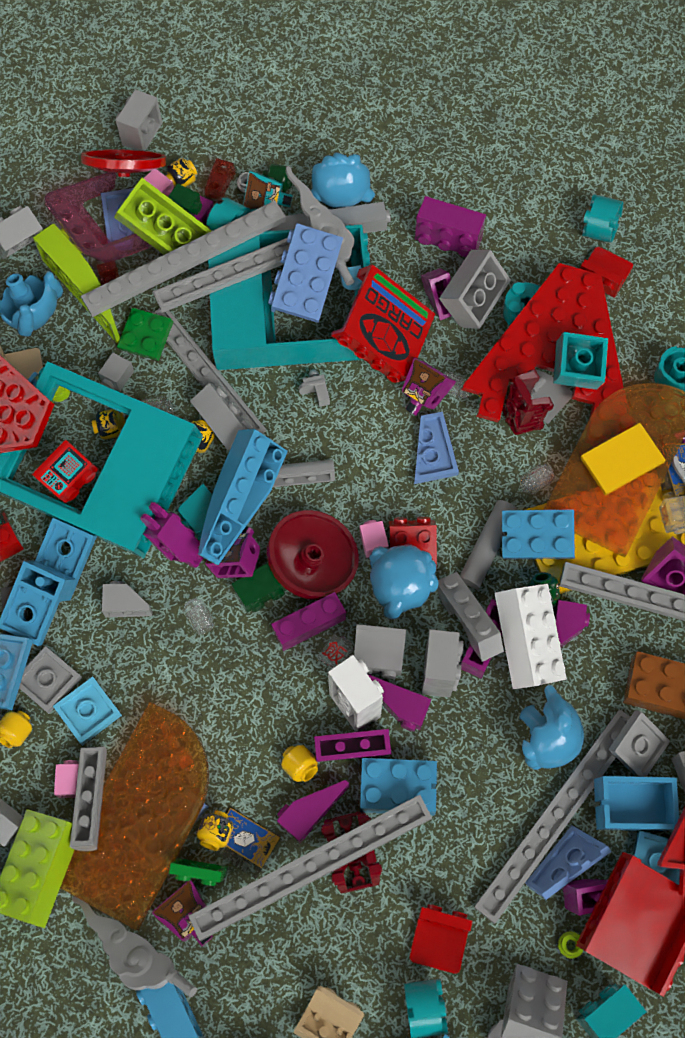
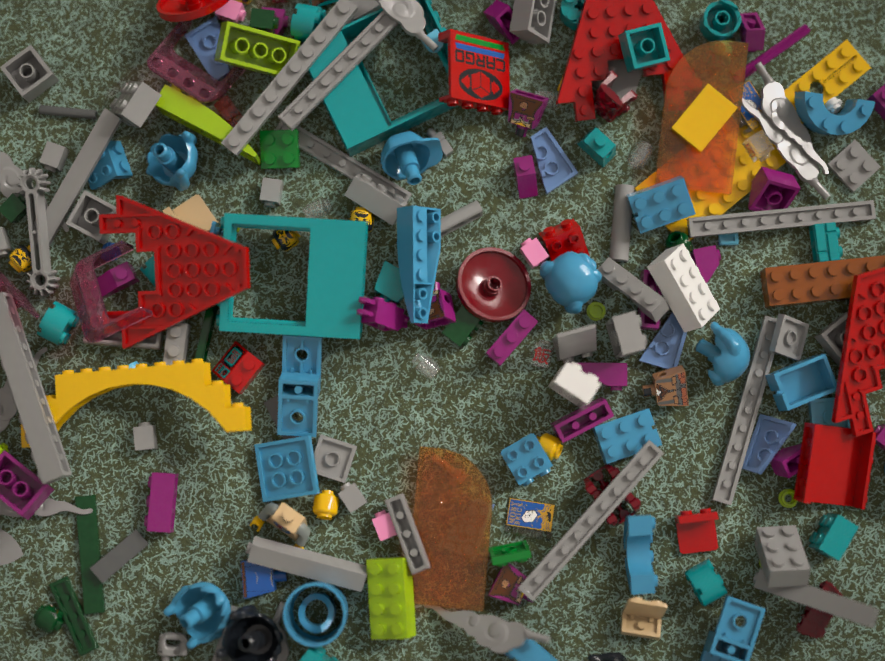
camera: 25 degrees left, 15 degrees up
(47, 731) = (352, 496): none -> light grey brick
(65, 472) = (284, 299): slope -> none
(87, 711) = (373, 469): medium azure plate -> none
(123, 601) = (363, 376): light grey slope -> none
(215, 830) = (508, 519): yellow head -> none
(267, 767) = (526, 459): none -> dark azure bracket
(278, 385) = (410, 155): none -> dark azure piece
(305, 272) = (397, 54): medium blue bracket -> none
(306, 812) = (567, 481): magenta slope -> none
(356, 935) = (638, 566): none -> dark azure brick
(397, 454) = (525, 176): none -> magenta slope
(419, 630) = (596, 311): none -> lime plate
(470, 748) = (668, 387): none -> torso
(486, 701) = (666, 346): none -> medium blue wing
(489, 449) = (598, 146): none -> teal torso
(606, 607) = (728, 239): none -> medium azure tile

